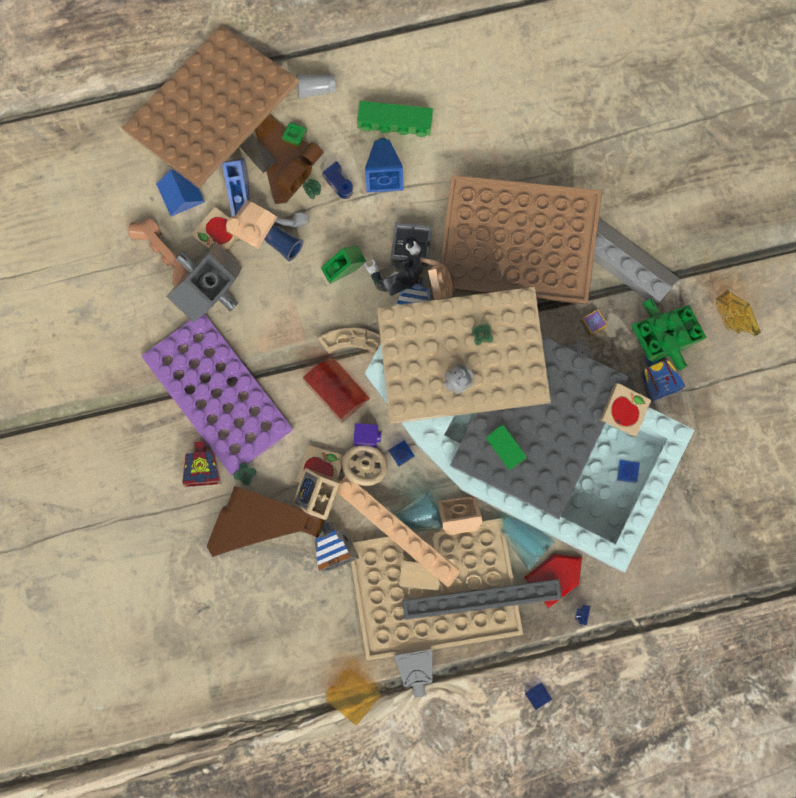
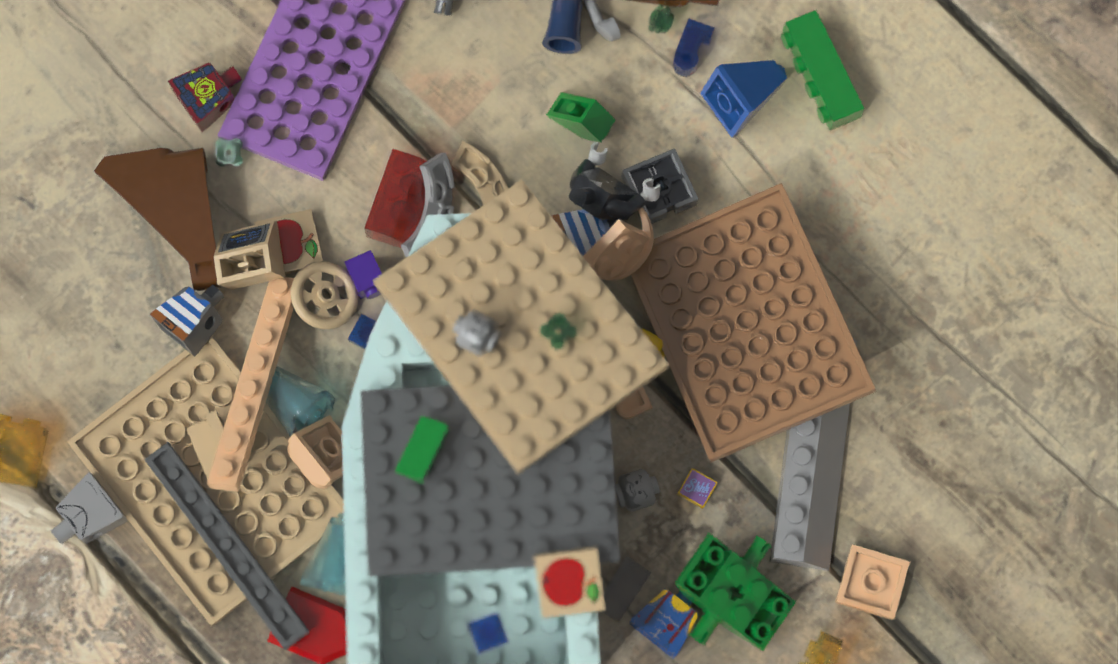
camera: 55 degrees right, 0 degrees up
(353, 375) = (438, 192): none -> light grey tile
(699, 258) = (872, 582): none -> light nougat plate

